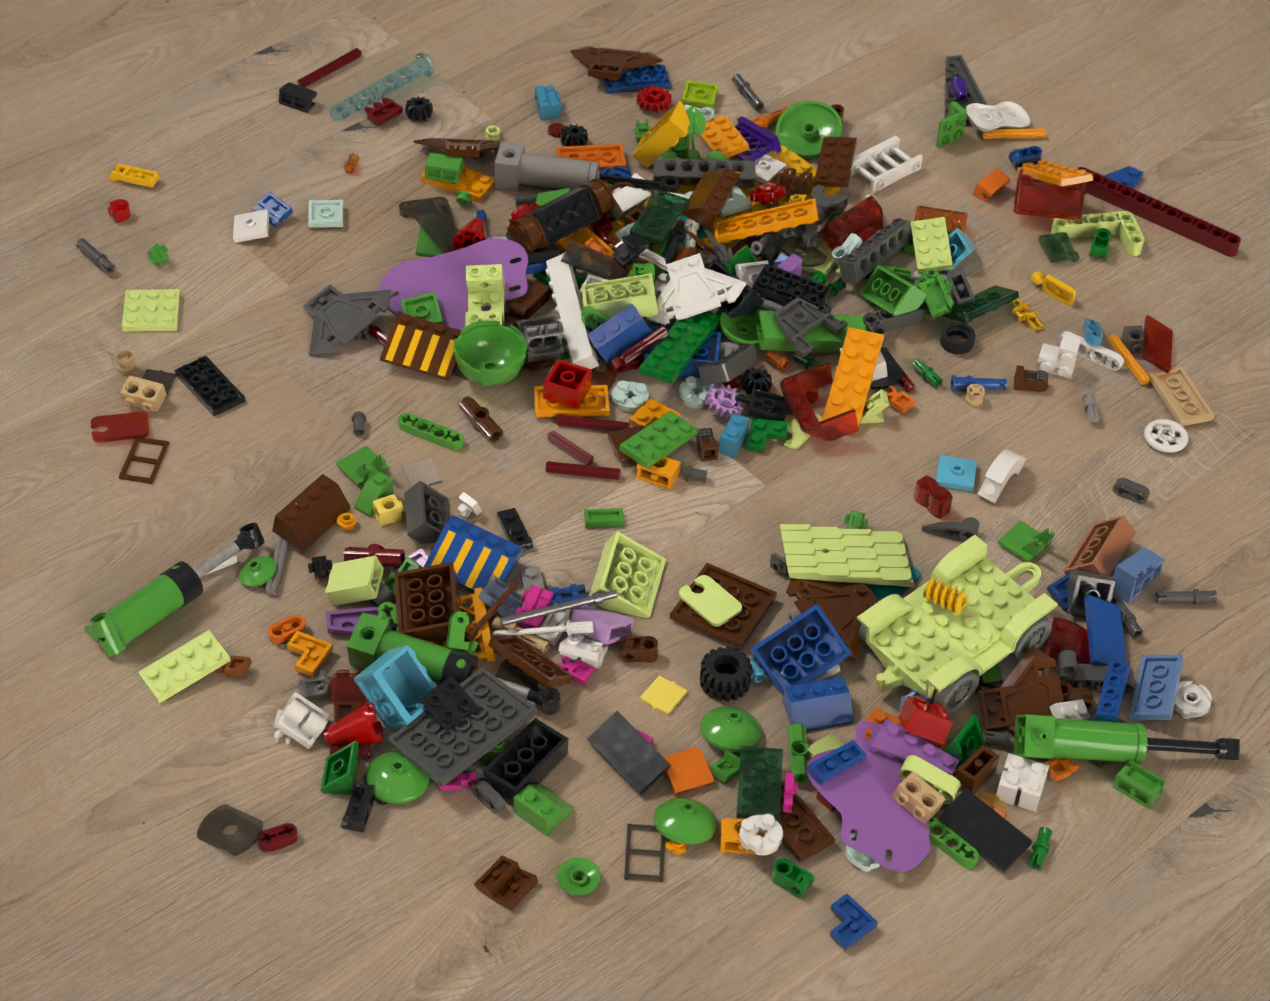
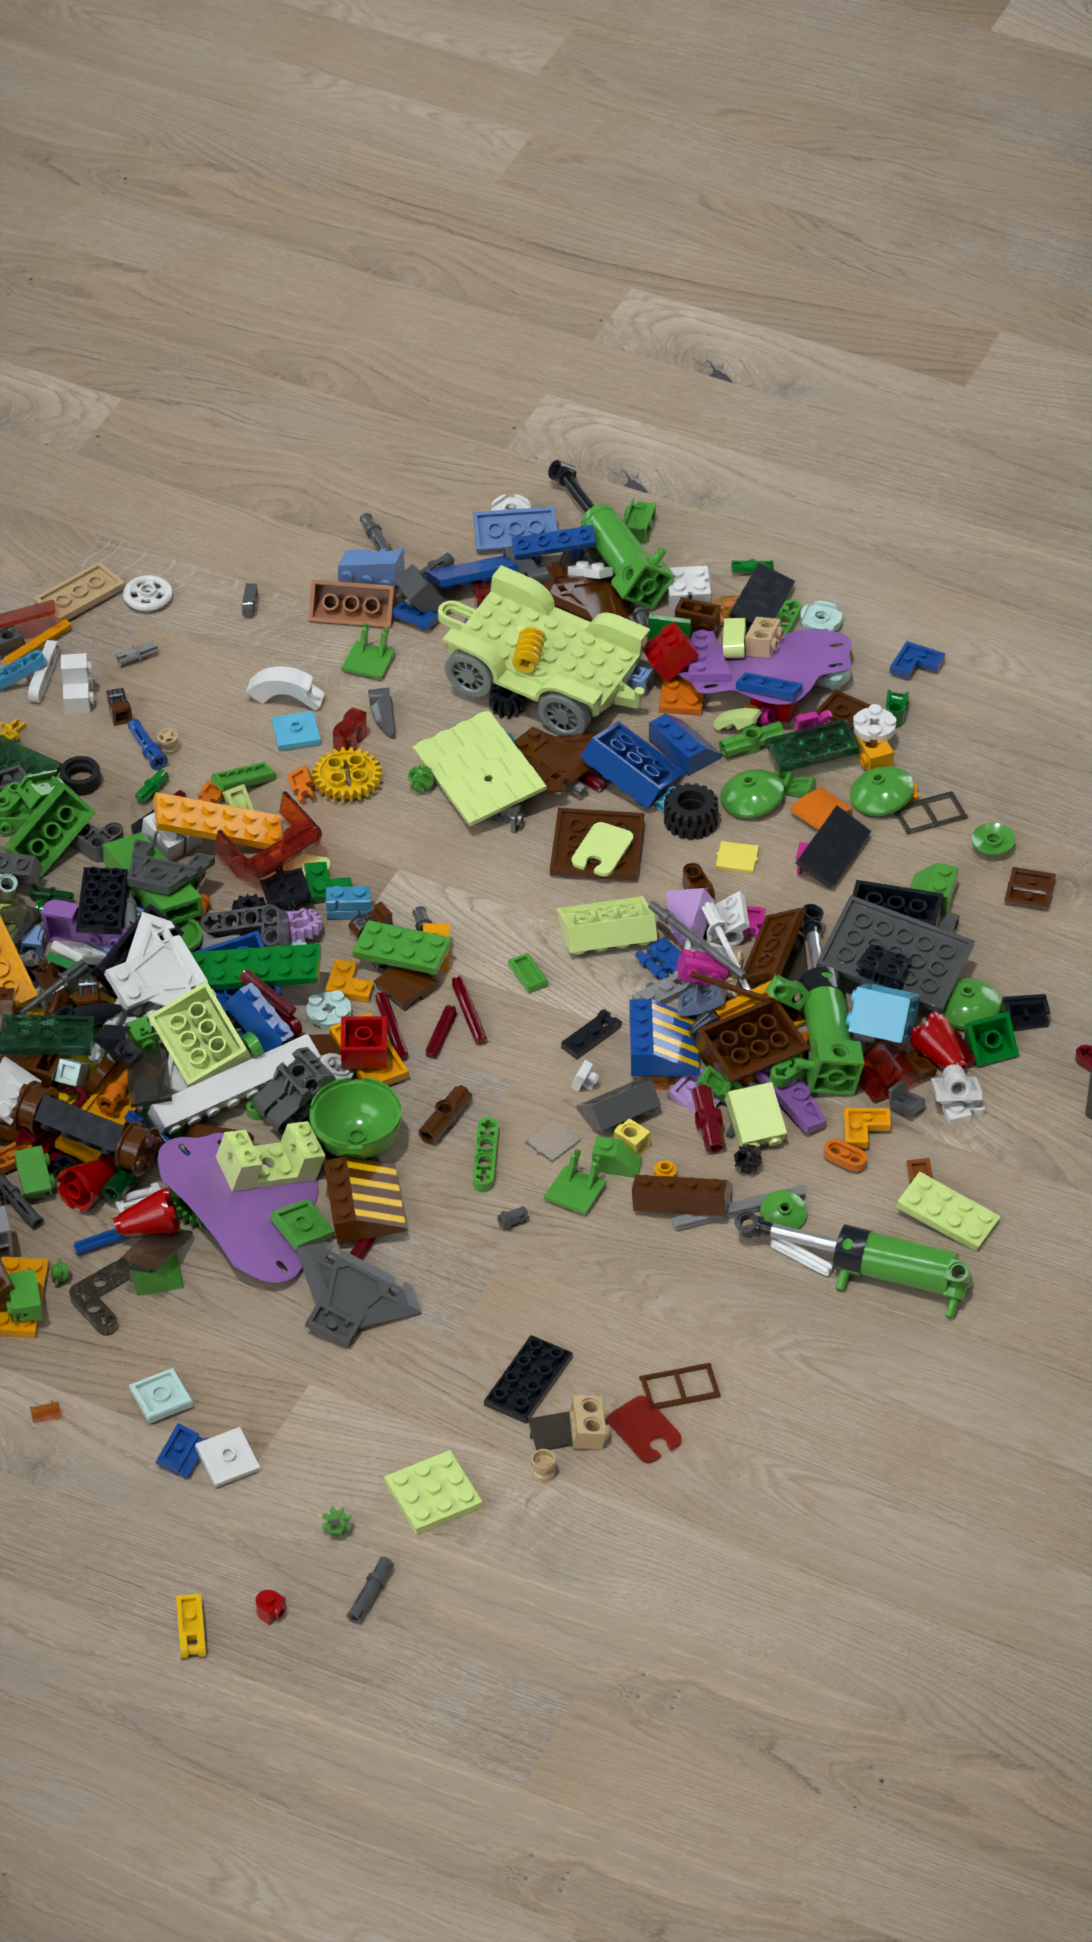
camera: 110 degrees left, 0 degrees up
(467, 584) = (706, 1018): none -> black cone
(884, 482) = (363, 773): none -> yellow gear
(890, 454) = (301, 782): none -> orange plate
(909, 421) = (246, 775): none -> bright green plate
(943, 883) = (811, 616): none -> light aqua plate

